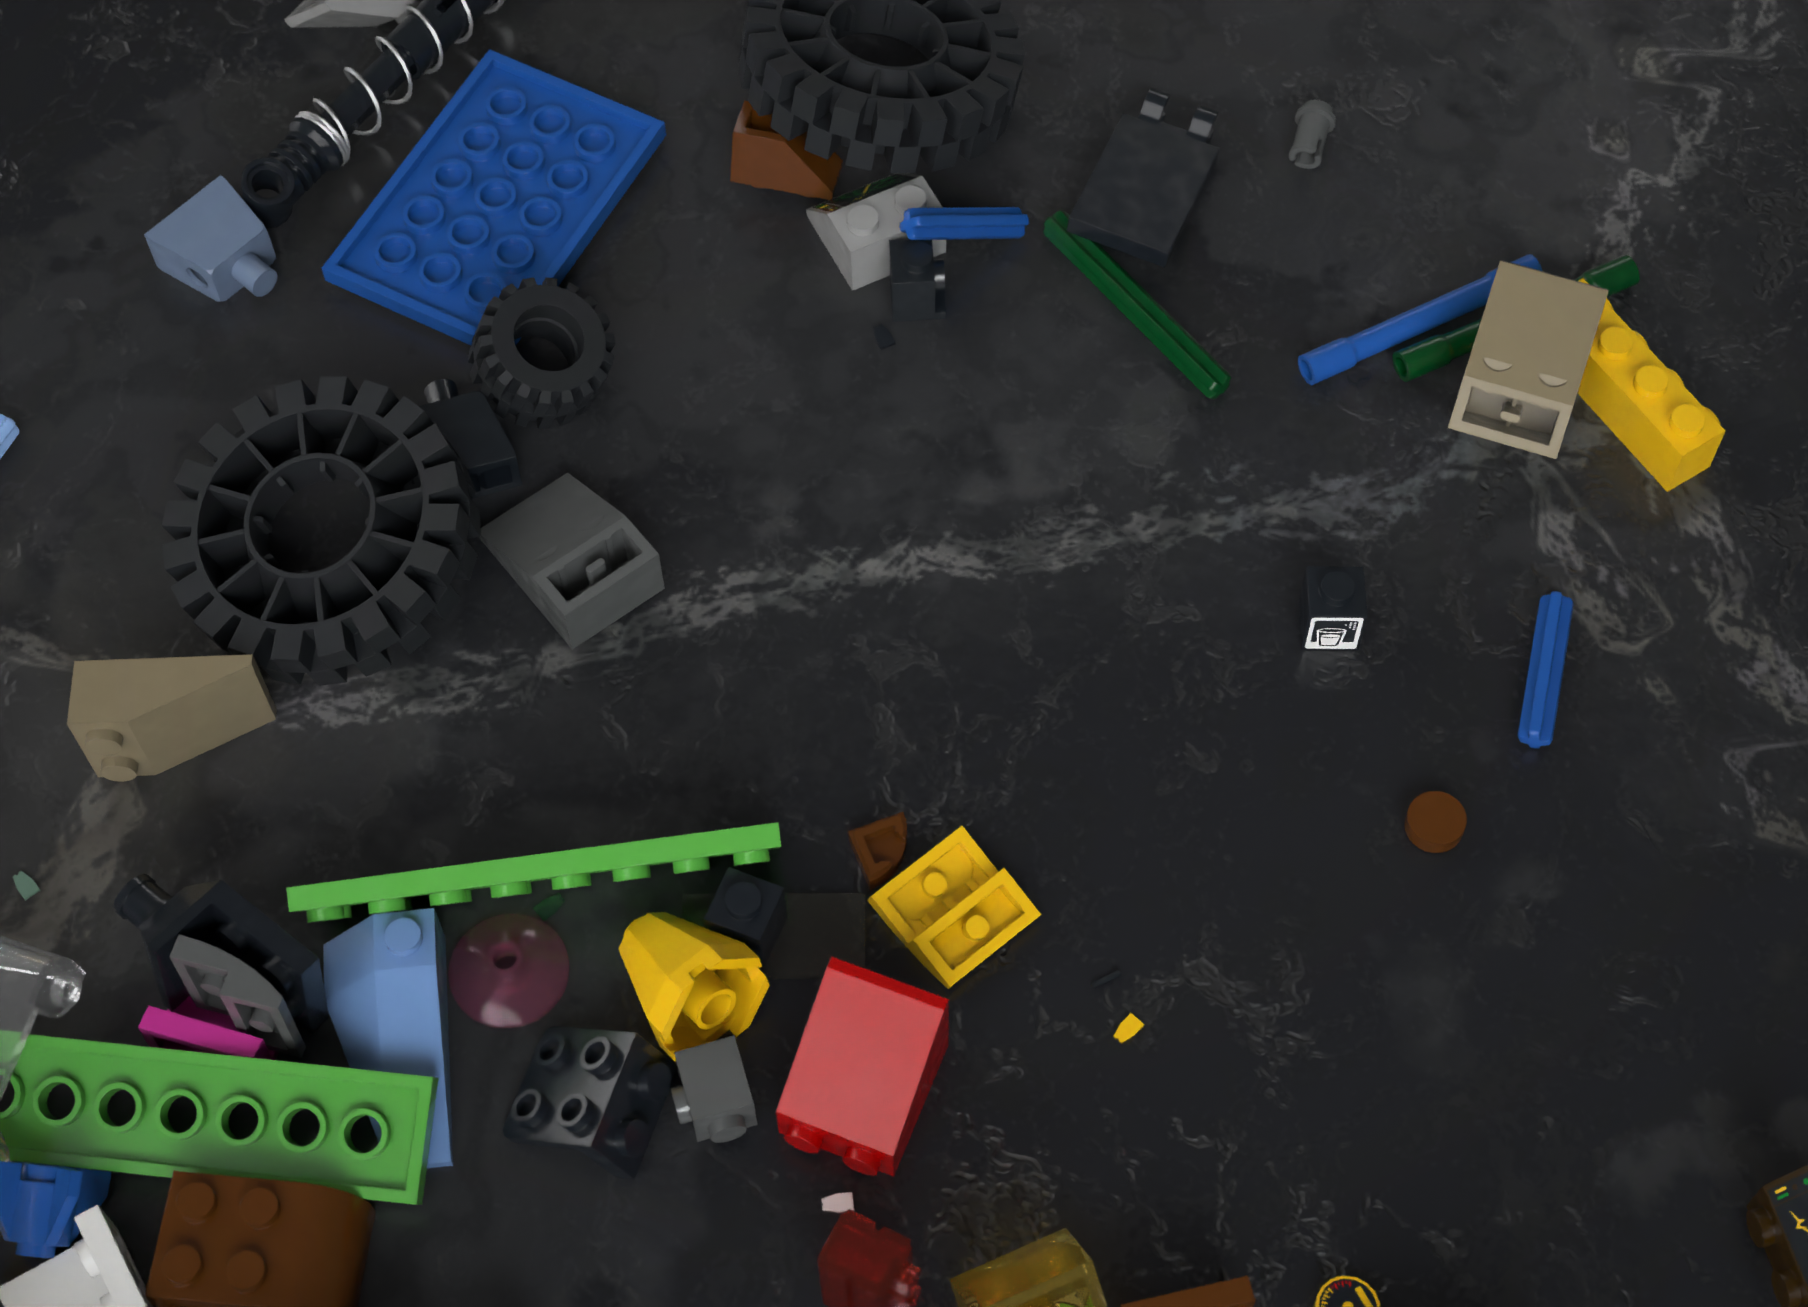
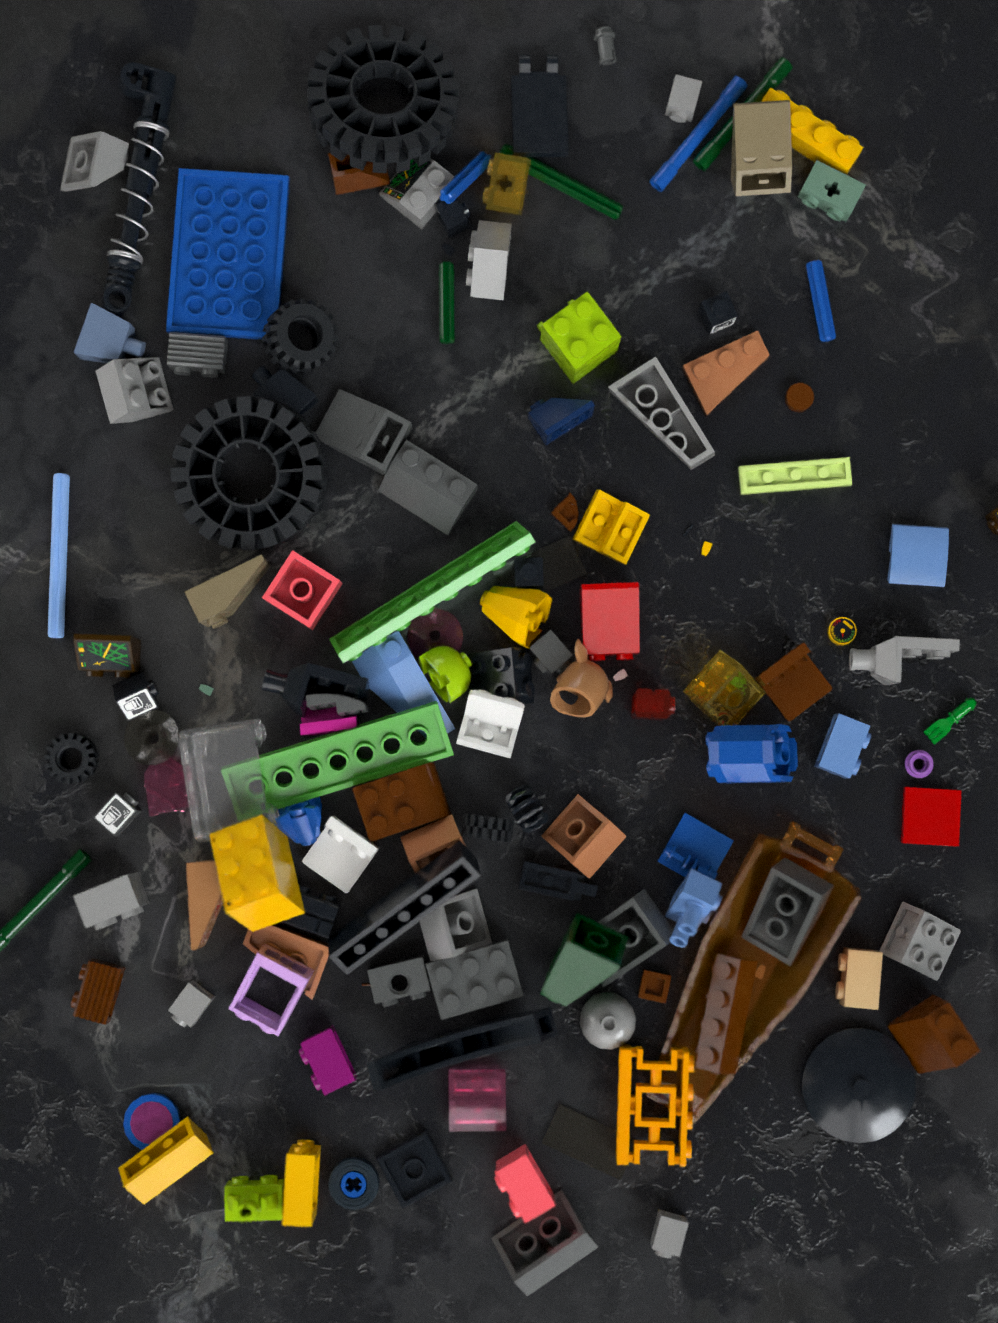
camera: 25 degrees left, 25 degrees up
(212, 335) = (133, 389): none -> light grey slope
(300, 770) = (302, 590): none -> coral brick
(353, 323) = (197, 353): none -> dark grey brick
(489, 1030) = (447, 671): none -> lime cylinder
(524, 1171) = (490, 723): none -> white bracket
(637, 692) = (427, 487): none -> dark grey slope
(750, 1163) = (584, 680): none -> medium nougat piece
(834, 412) = (446, 302): none -> dark green axle
(941, 360) = (489, 255): none -> light grey brick
(949, 667) = (558, 416): none -> dark blue slope
(1035, 263) = (517, 171): none -> clear yellow brick
(1047, 539) = (580, 337): none -> lime container
(1146, 723) = (661, 409): none -> light grey wedge
(1297, 716) = (724, 369): none -> nougat wing
(1369, 962) = (795, 475): none -> yellowish green tile
(1416, 253) = (683, 99): none -> light grey brick
(1572, 1218) = (918, 555): none -> medium blue slope
(1637, 491) = (845, 189): none -> sand green brick

